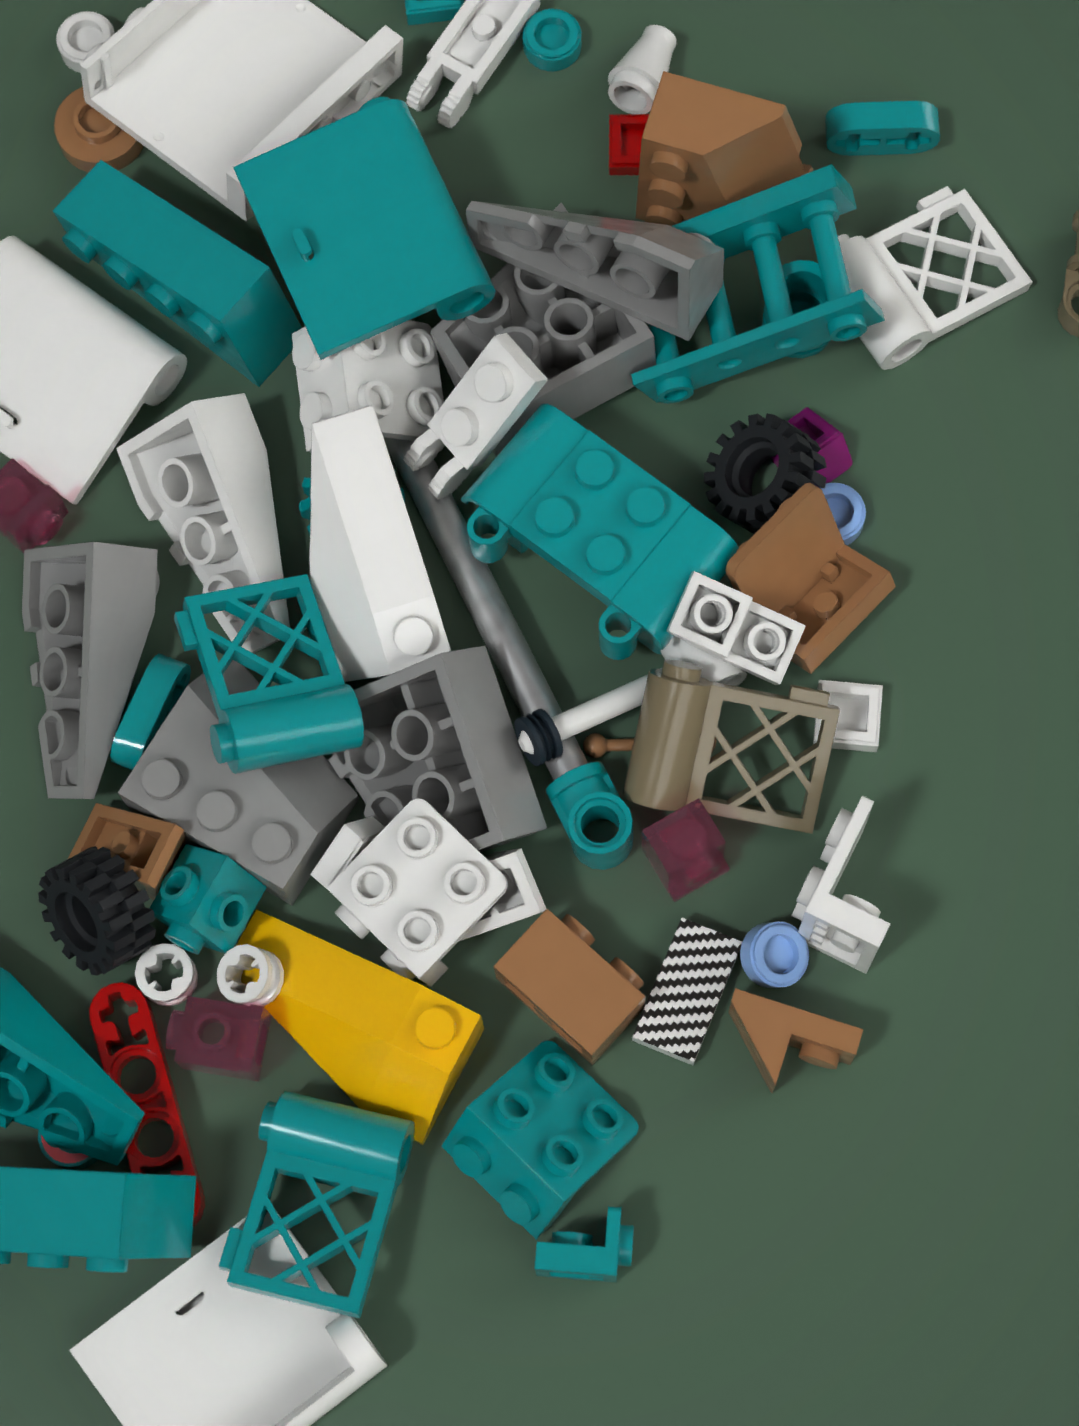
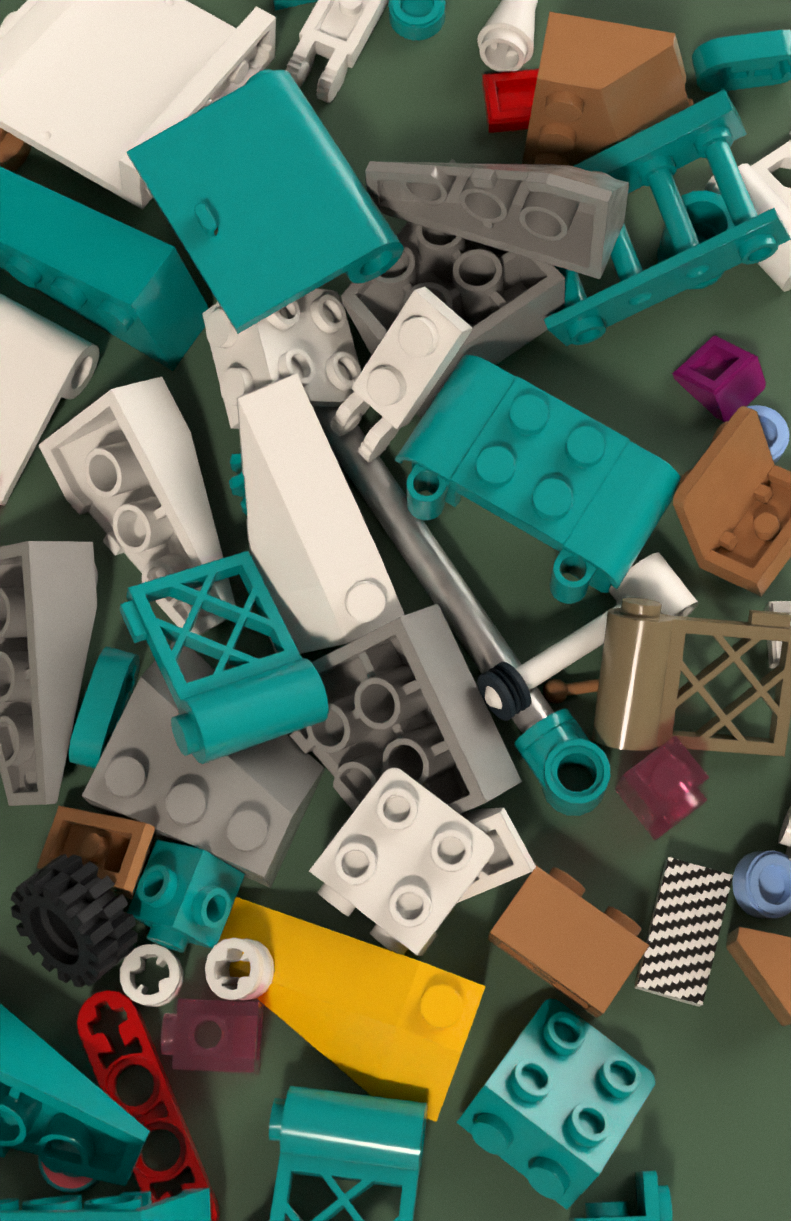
camera: 10 degrees left, 0 degrees up
(345, 848) = (323, 827): white tile -> none
(735, 628) = (688, 559): white slope -> none
(743, 457) = (664, 387): black tyre -> none

